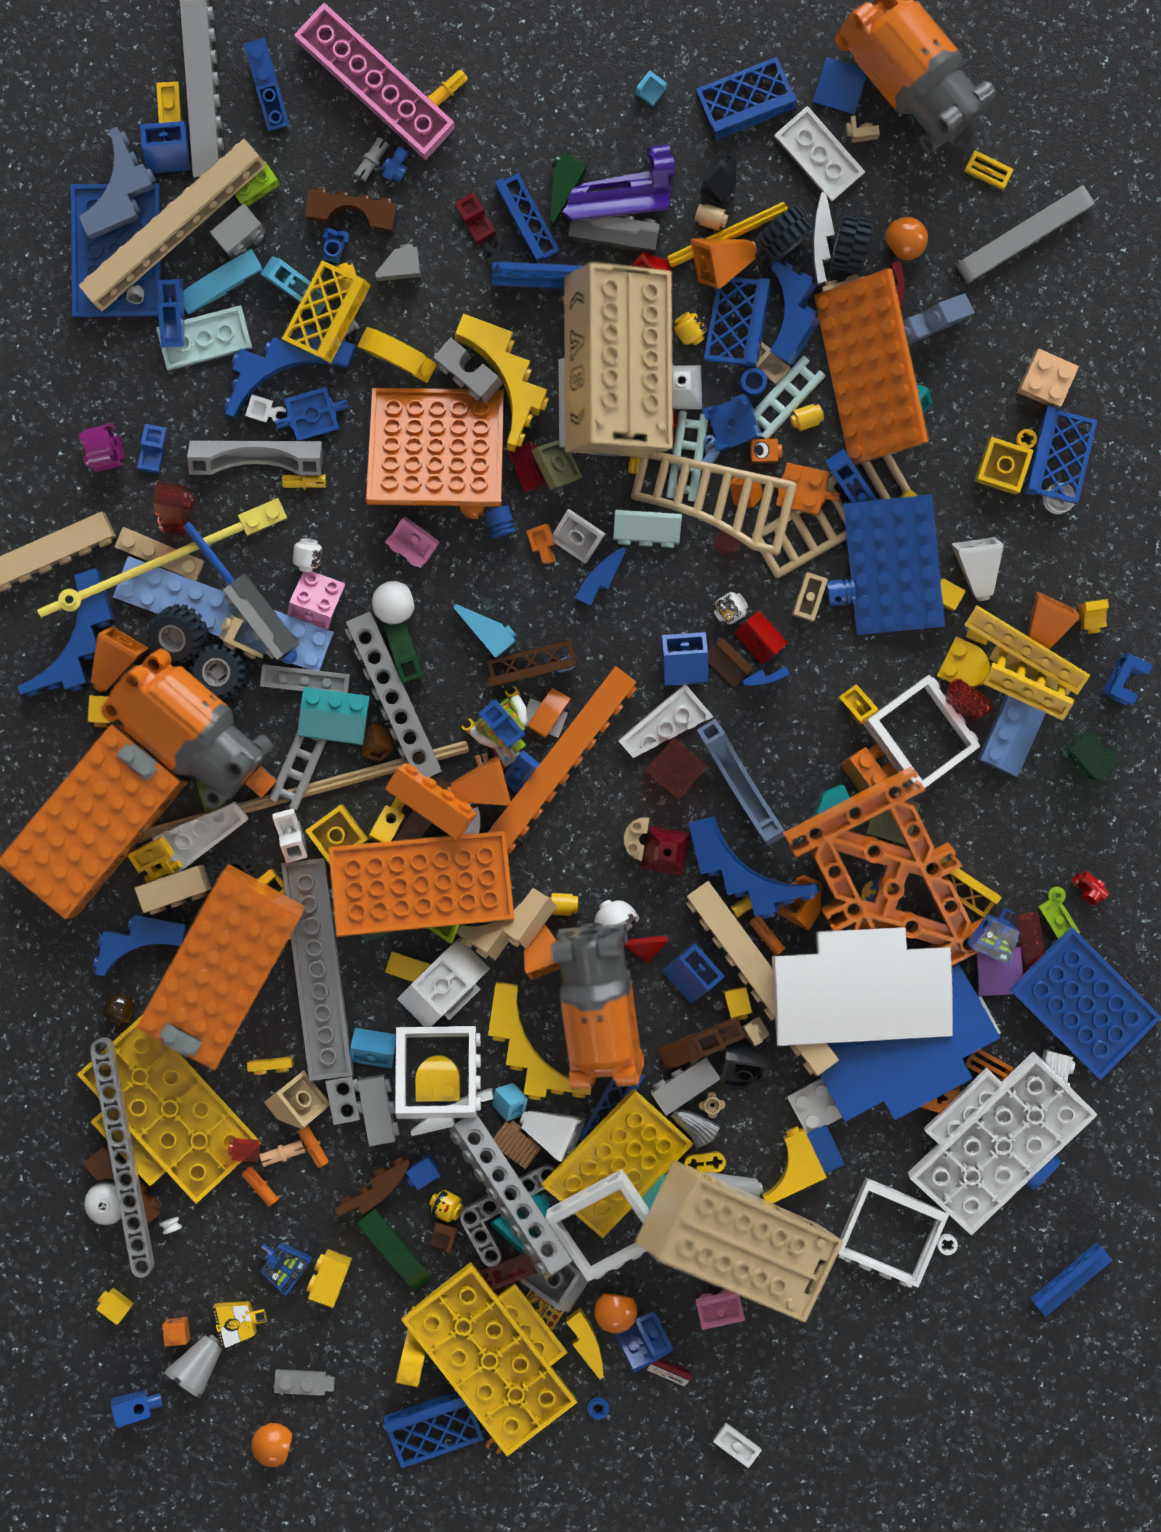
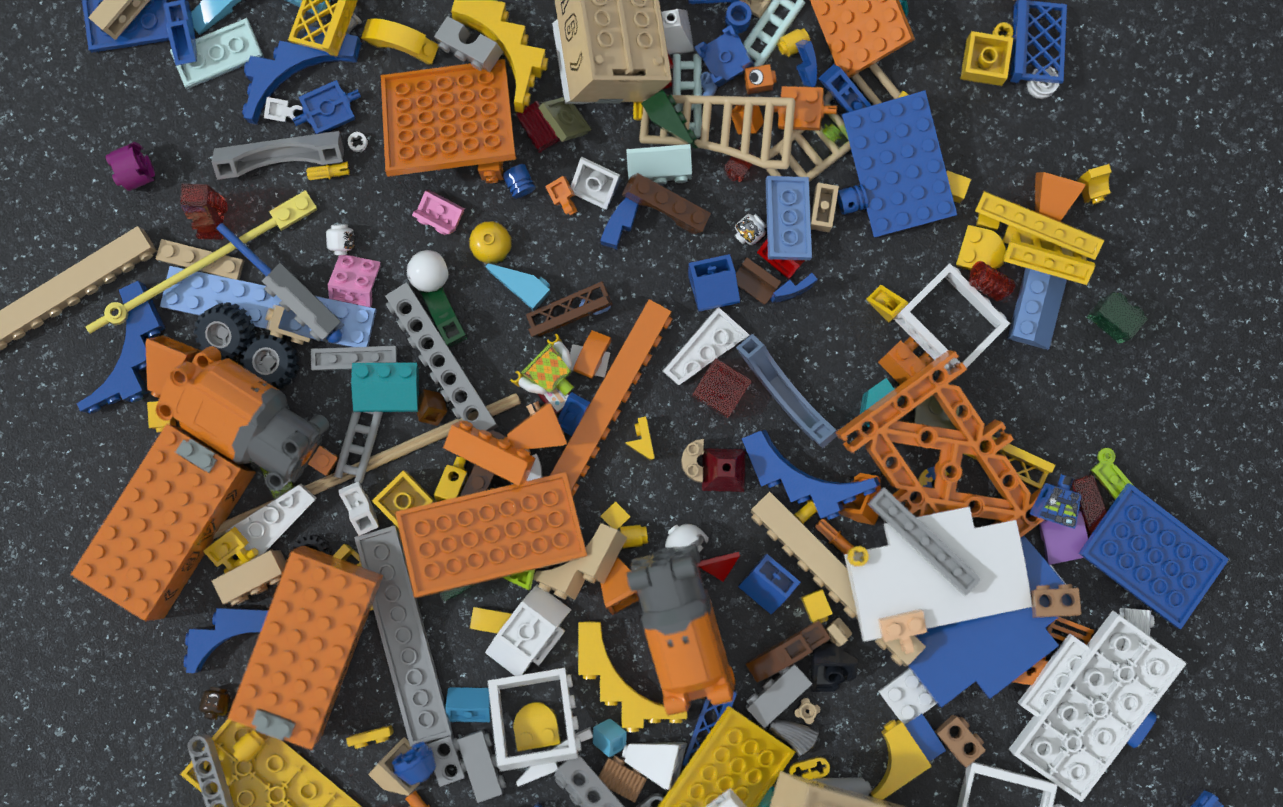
camera: 10 degrees left, 5 degrees down
(135, 294) = (141, 20): light grey hinge -> none
(148, 1056) = (248, 746): none -> yellow brick
(152, 448) = (180, 160): blue slope -> none
(313, 1099) = (415, 764): none -> blue cone
(338, 447) = (359, 148): none -> white bush
(461, 580) = (490, 242): none -> yellow cylinder
(502, 723) = (547, 368): blue slope -> none
(548, 881) = (615, 516): none -> yellow tile
(588, 814) = (643, 445): none -> yellow slope
(648, 569) = (650, 194): none -> reddish brown arch
(660, 476) = (665, 116): none -> dark green slope
(771, 603) = (788, 218): none -> medium blue plate
(786, 955) = (858, 549): none -> yellow bush
(816, 447) = (807, 69): none -> blue slope
(818, 1037) = (902, 627): none -> light nougat plate
(830, 520) = (831, 132): none -> clear neon green plate
(853, 956) = (924, 541): none -> light grey plate
(856, 1159) = (957, 743): none -> medium nougat brick
(975, 1040) = (1055, 607): none -> medium nougat brick
(979, 564) = (980, 154): white slope -> none
(1093, 888) = (1140, 444): red plate -> none
(1120, 675) = (1135, 227): blue panel -> none

